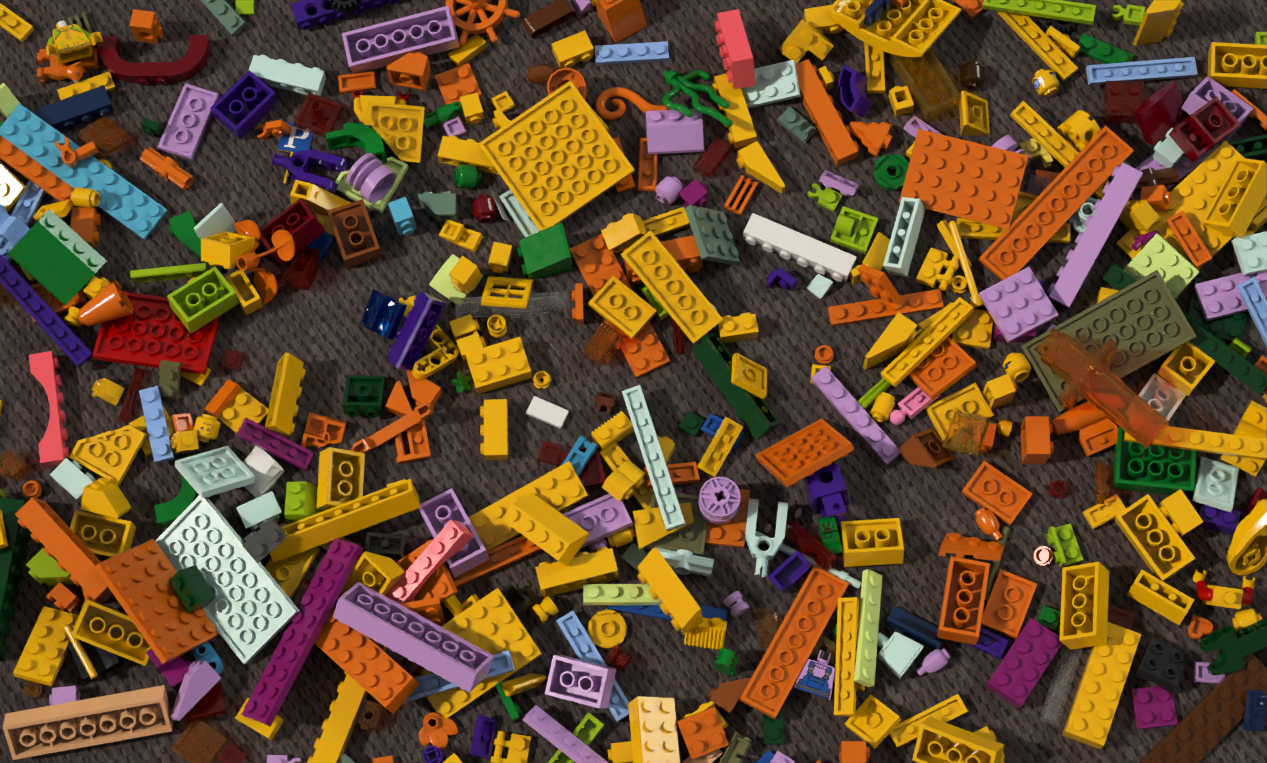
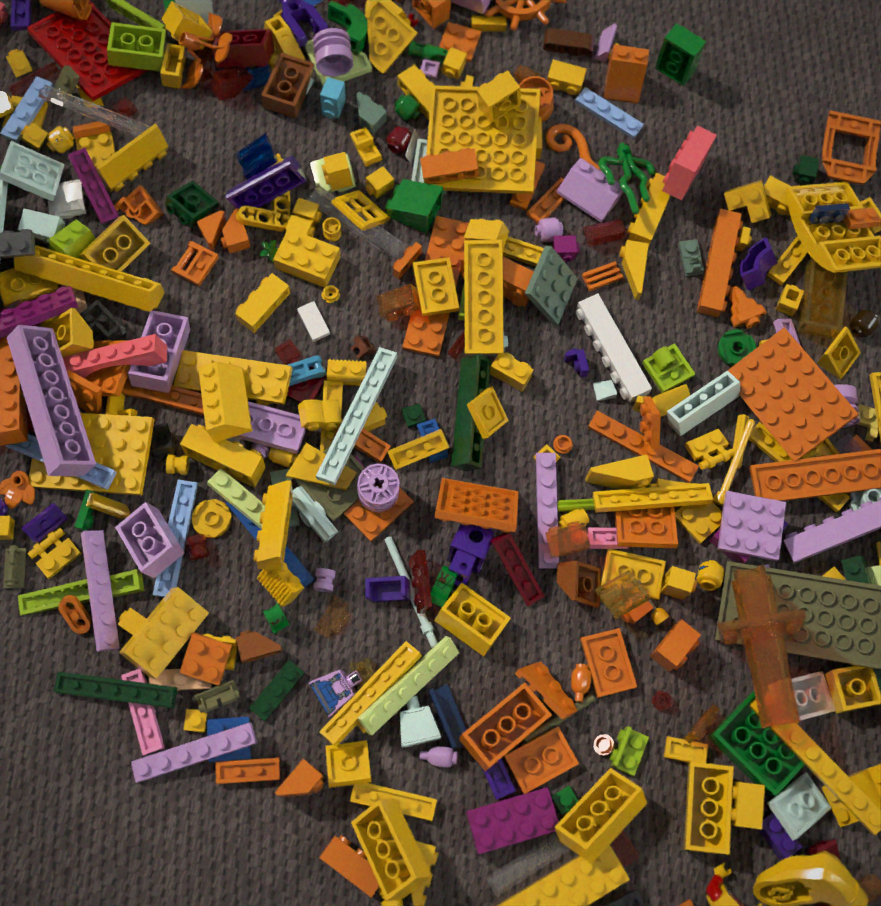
camera: 30 degrees right, 0 degrees up
(182, 422) = (47, 122): orange tile -> none
(215, 382) = (93, 111): none -> clear tile
(418, 414) = (215, 244): orange piece -> none
(503, 102) = (481, 76): yellow tile -> none
(546, 114) = (499, 96): none -> yellow brick
(551, 200) = (449, 166): none -> orange brick
(773, 84) = (696, 212): light aqua plate -> none
(774, 543) = (393, 558): light aqua piece -> none
(794, 642) = (341, 647): orange plate -> none
(828, 198) = (667, 329): lime plate -> none
(835, 181) = (689, 329): lavender plate -> none
(874, 476) = (517, 568): none -> dark red plate
(892, 425) = (567, 539): none -> clear orange brick
(963, 284) = (717, 469): yellow plate -> none
(1094, 427) = (733, 677): orange plate -> none
(1160, 597) = (673, 862): yellow brick -> none

